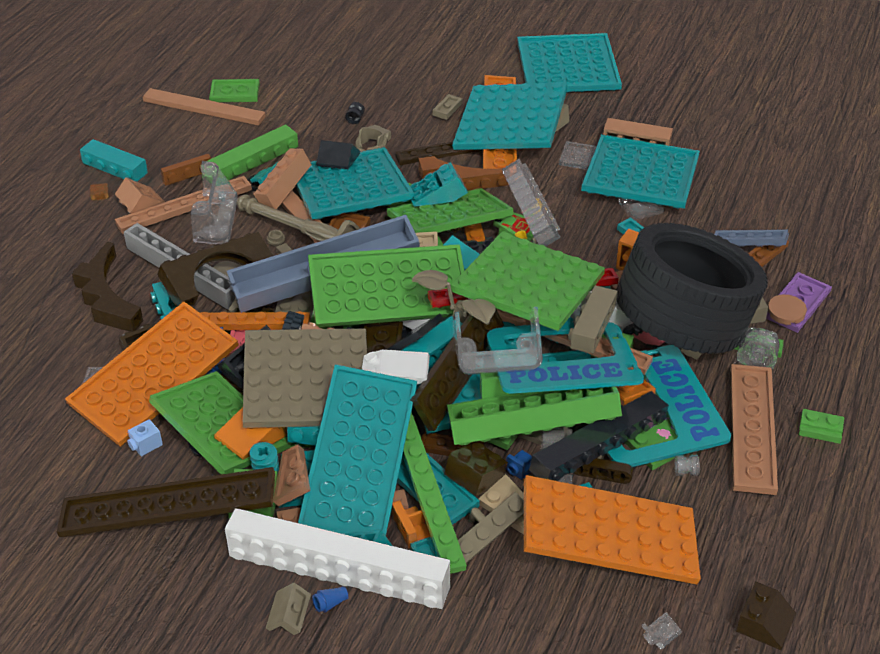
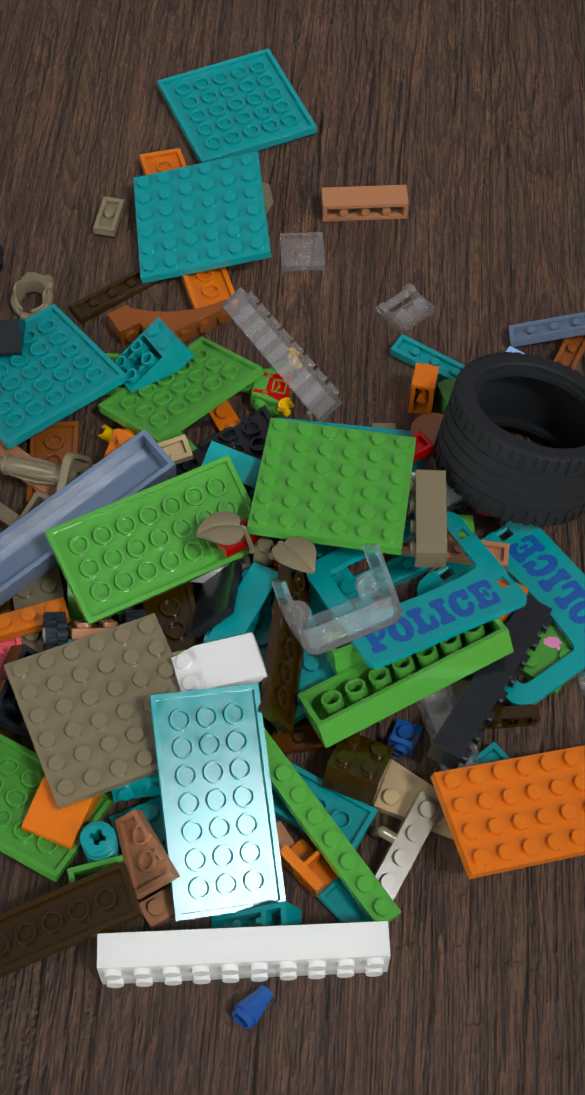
camera: 20 degrees left, 15 degrees up
(289, 609) = (208, 1039): dark tan panel -> none
(641, 171) = (390, 259): teal plate -> none

